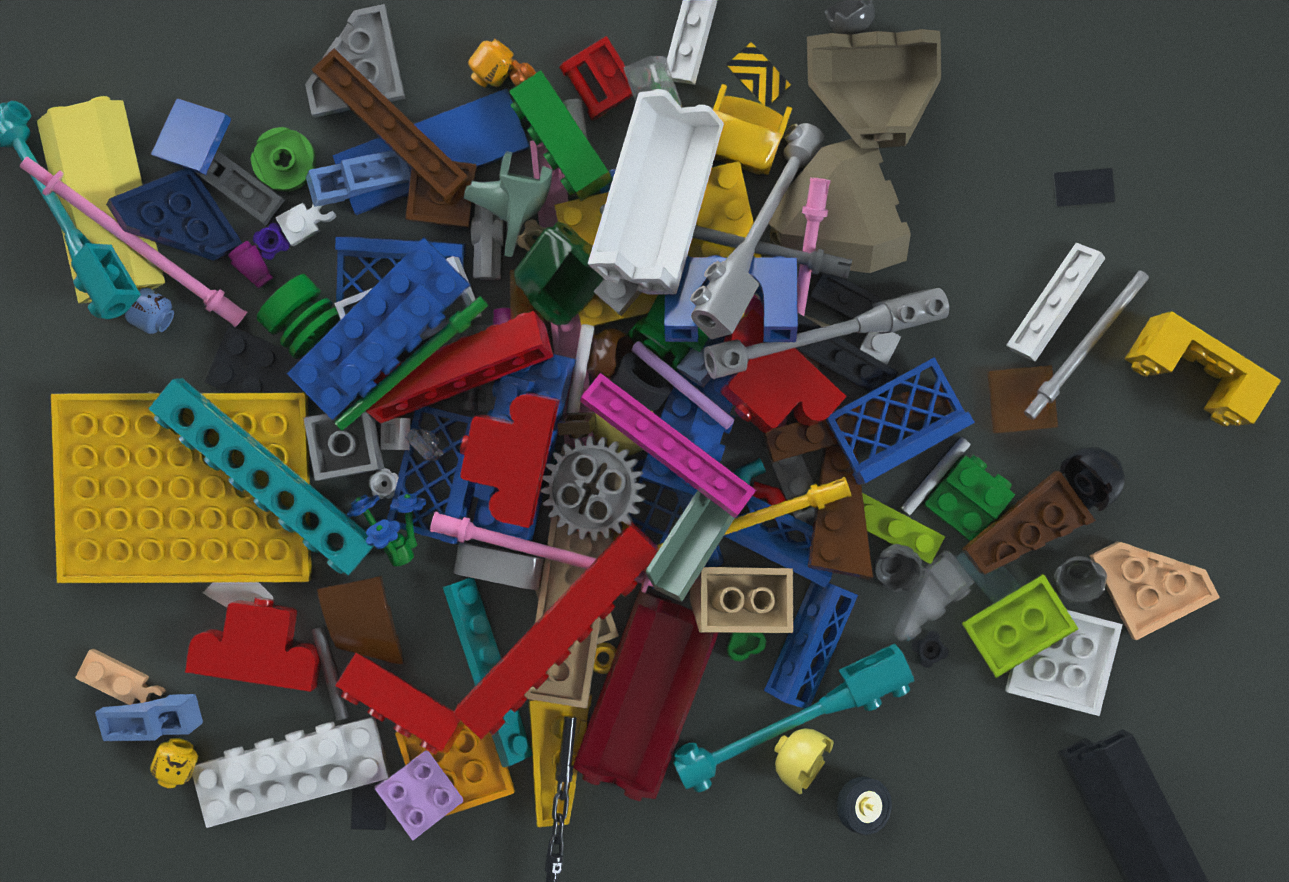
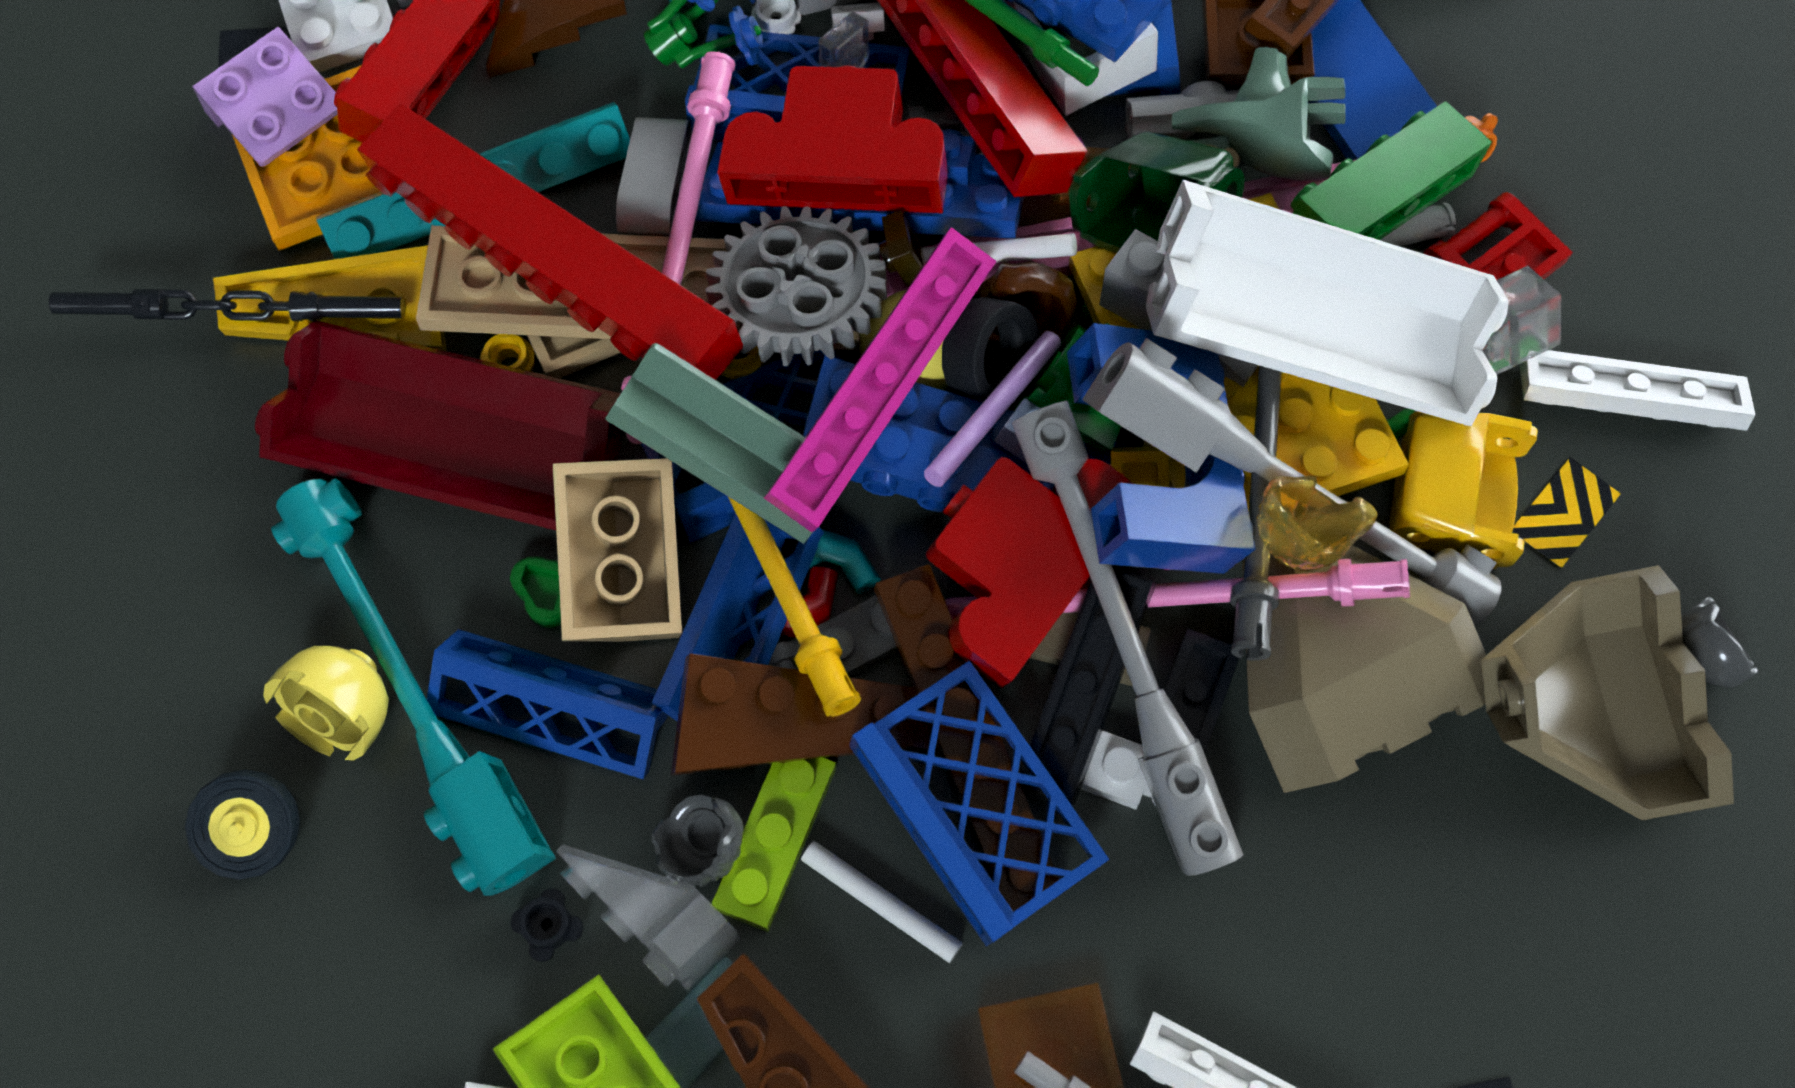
camera: 90 degrees right, 20 degrees down
(491, 63) = (1484, 87): light orange head -> none
(788, 226) = (1307, 526): none -> clear yellow hair
(969, 497) = (848, 968): green plate -> none

